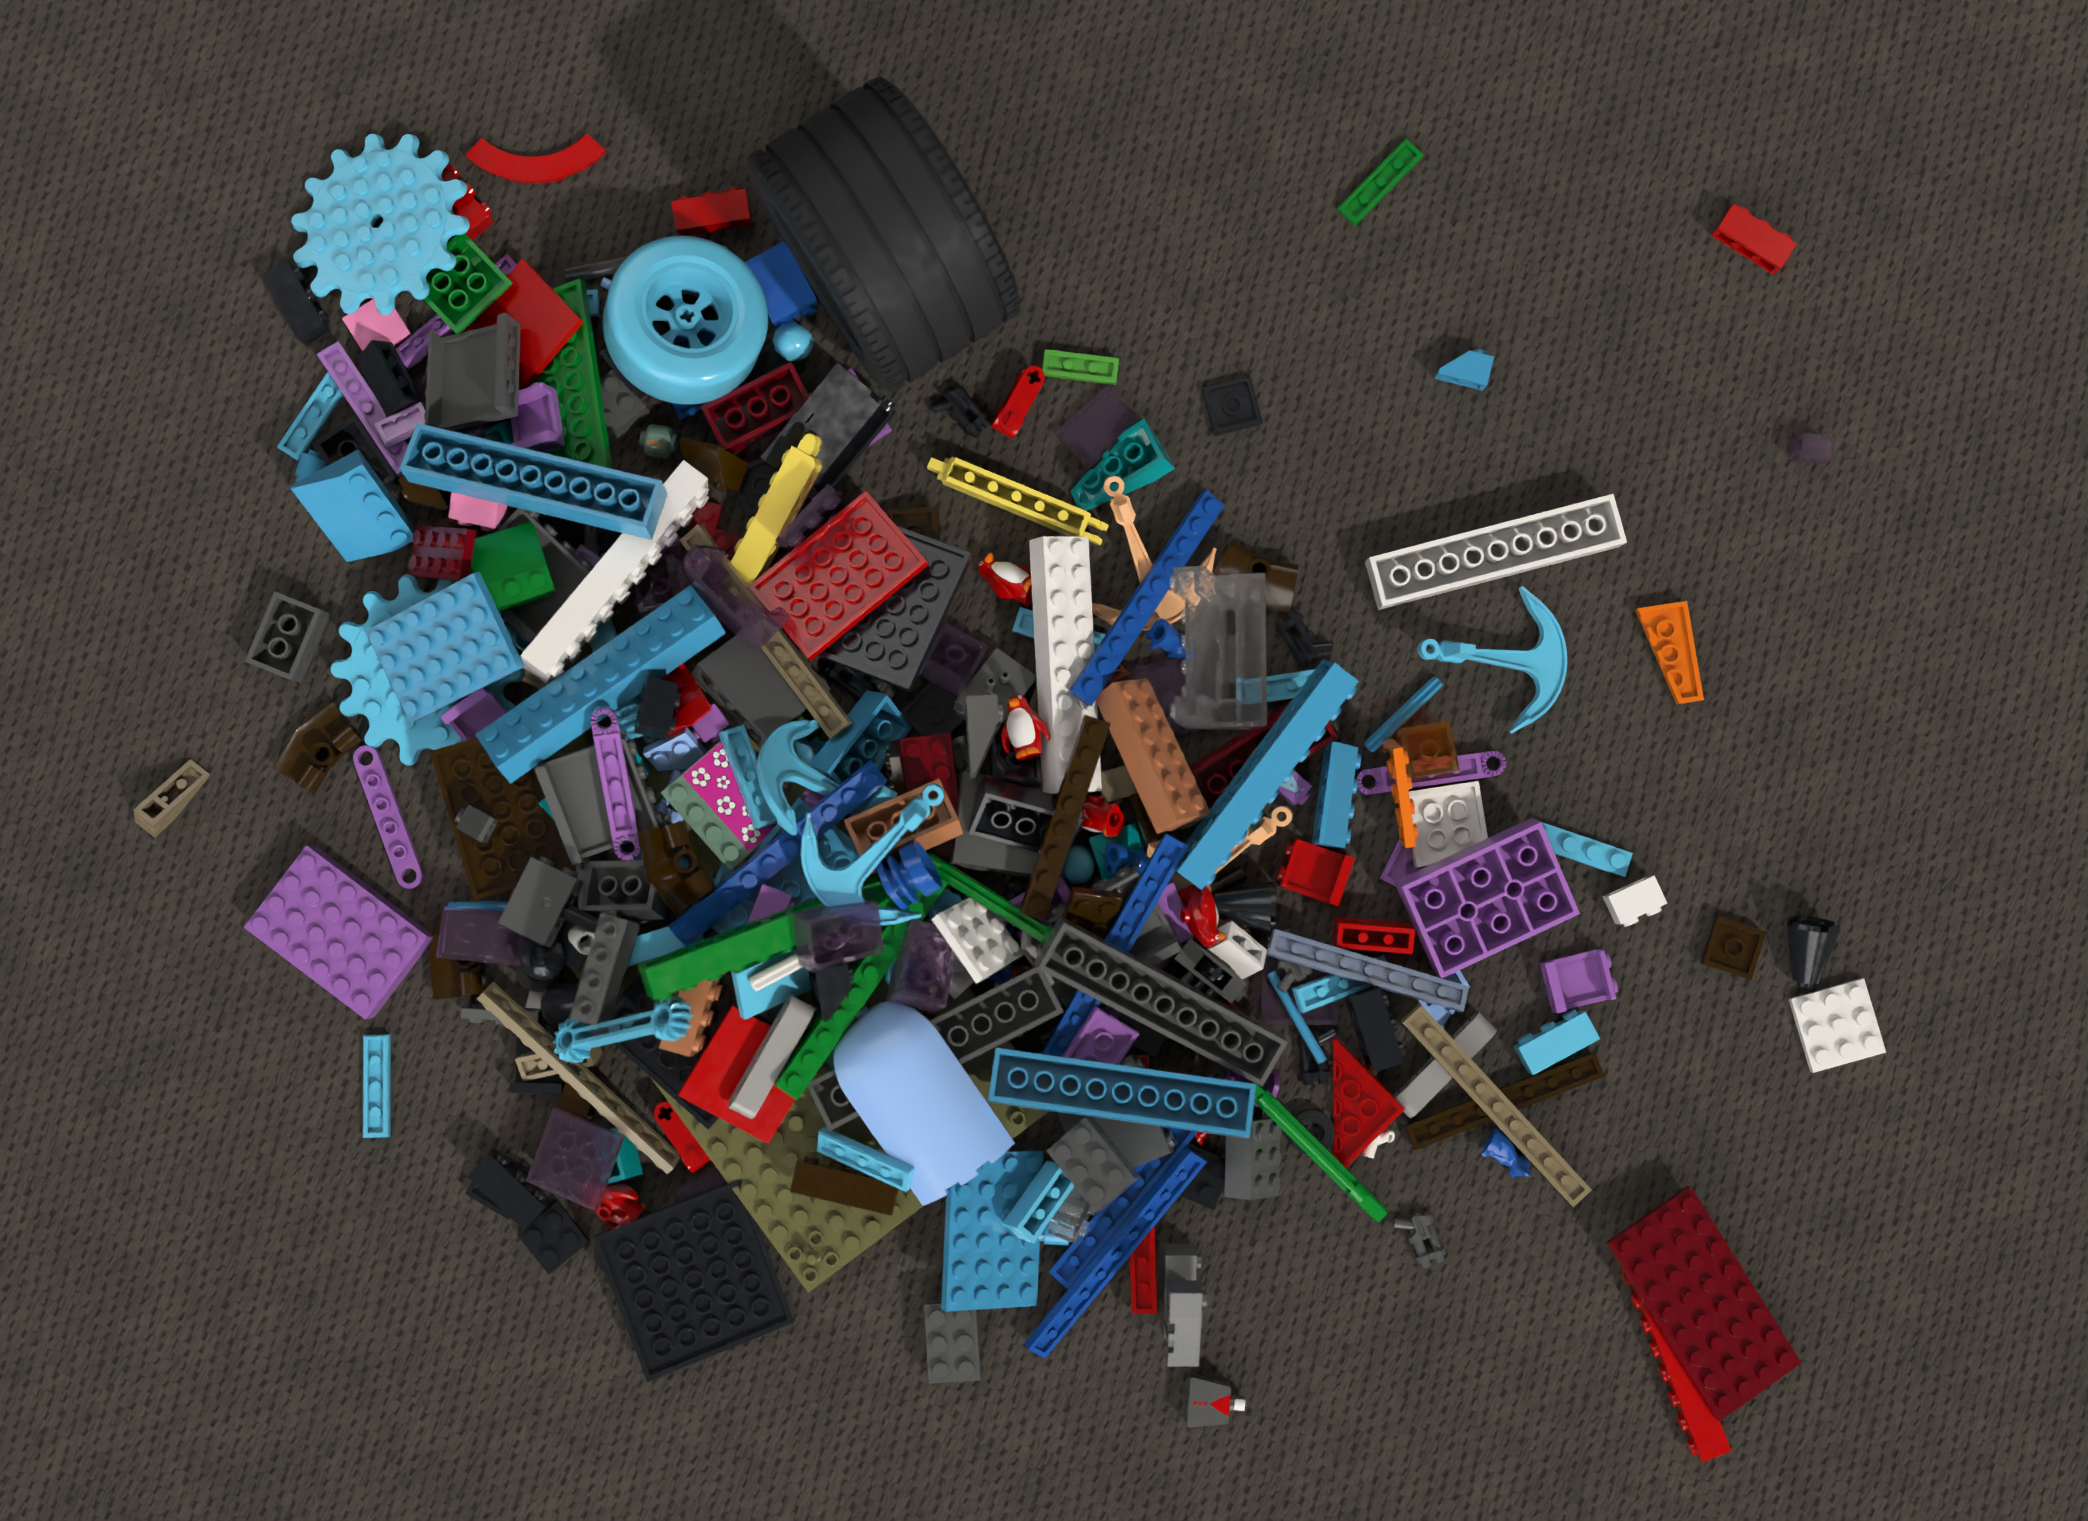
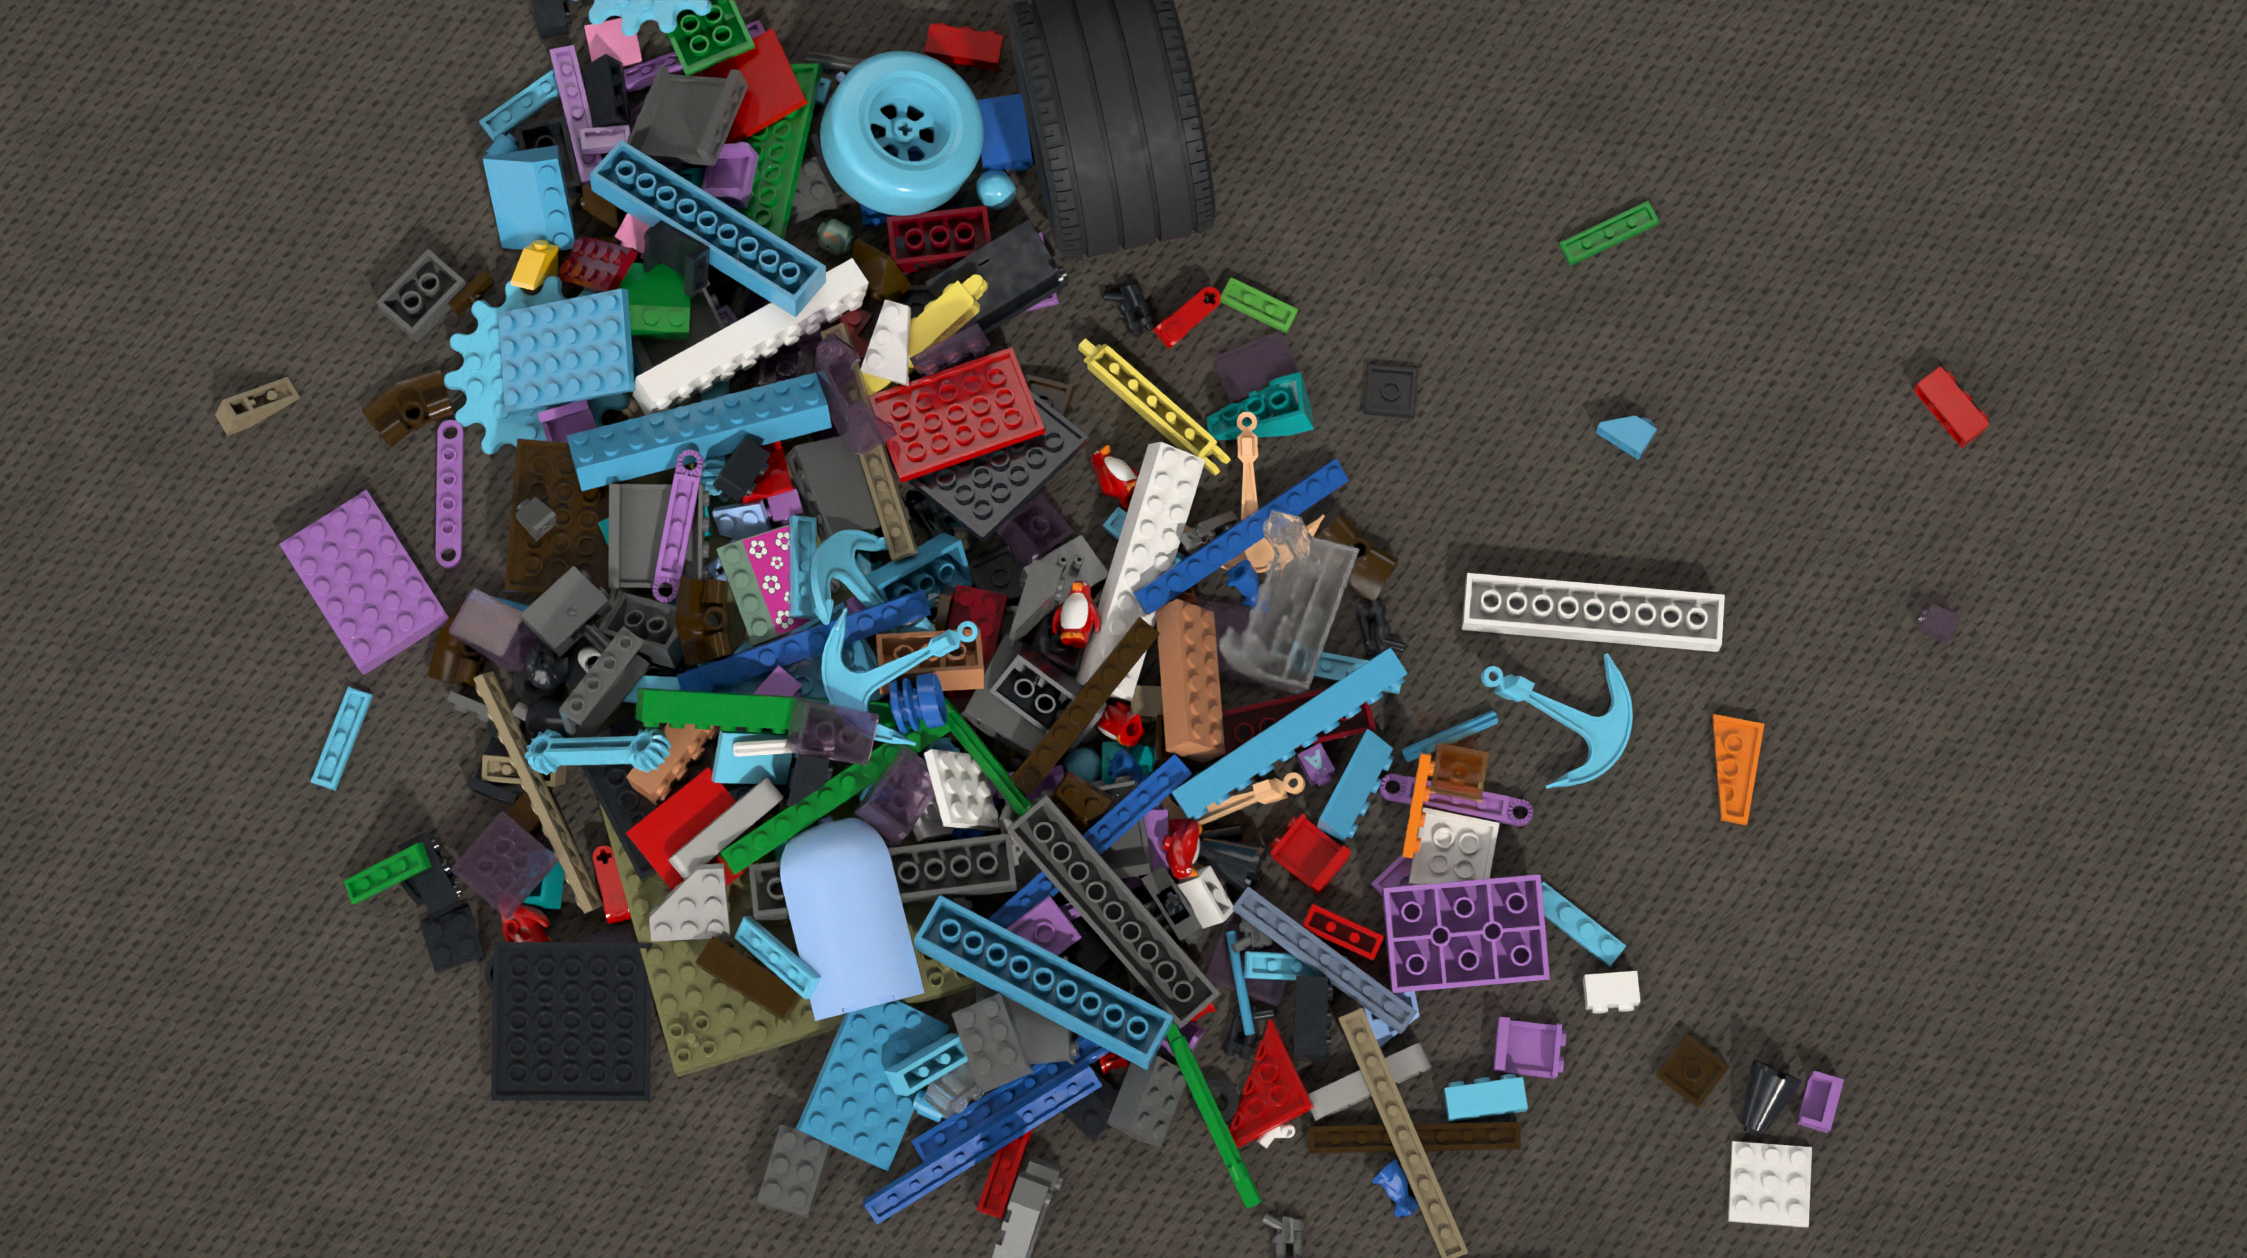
camera: 25 degrees right, 10 degrees down
(334, 617) = (471, 293): none -> dark brown plate
(383, 571) = (536, 264): none -> yellow slope
(468, 1204) = (387, 873): none -> green tile
(515, 514) = (679, 252): none -> black panel
(750, 534) = (888, 349): none -> white wing
(769, 1140) = (694, 907): none -> light grey plate
(1113, 603) = (1207, 530): none -> dark grey hinge
(1858, 934) = (1820, 1101): none -> medium lavender panel

